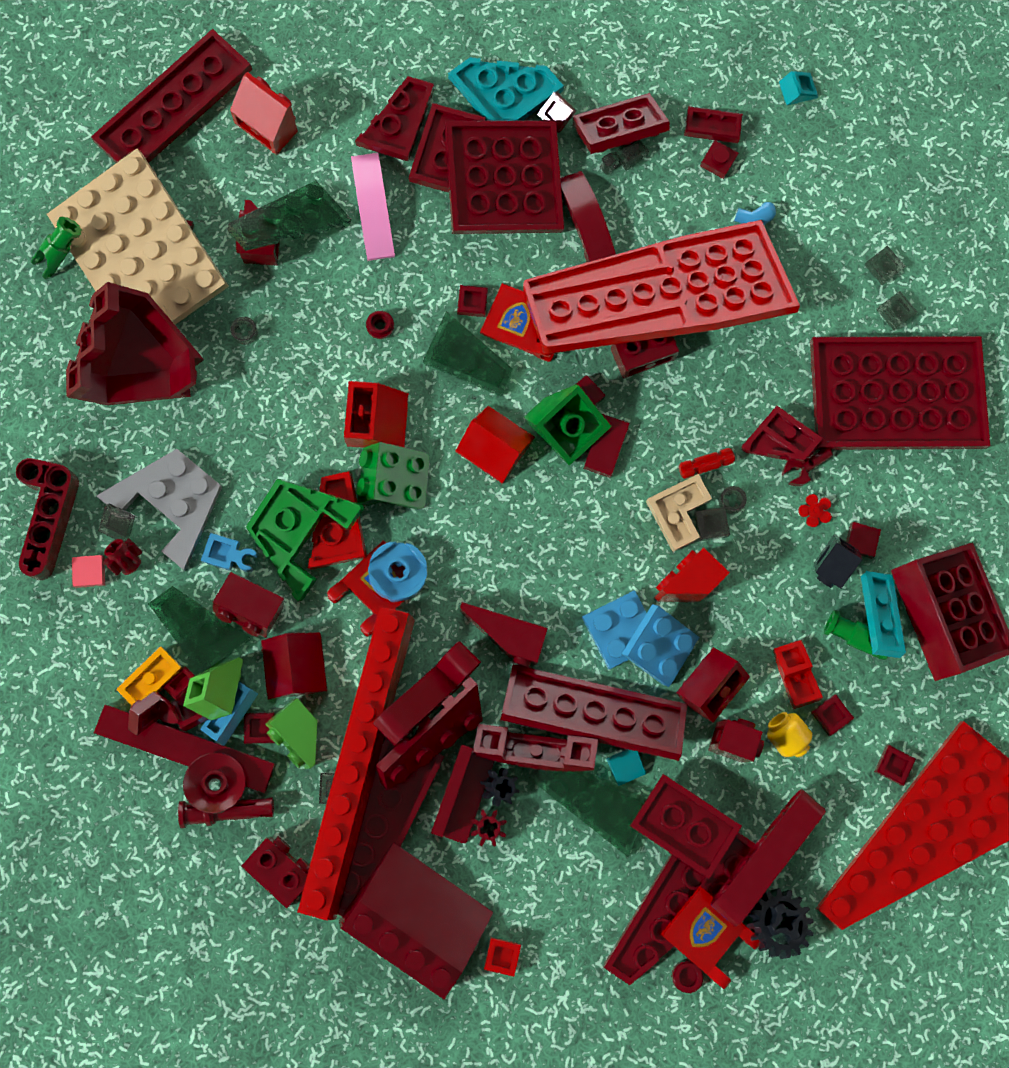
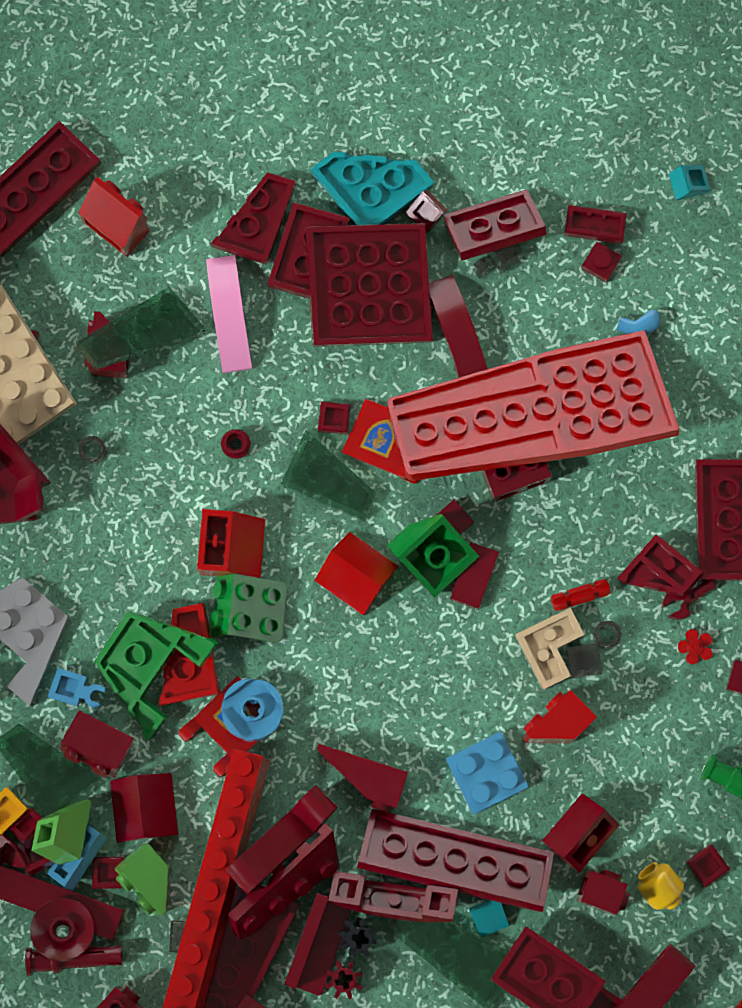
camera: 10 degrees right, 0 degrees up
(660, 645) = (526, 790): dark azure plate -> none
(797, 674) = (671, 822): red slope -> none
(837, 562) = (713, 704): black brick -> none

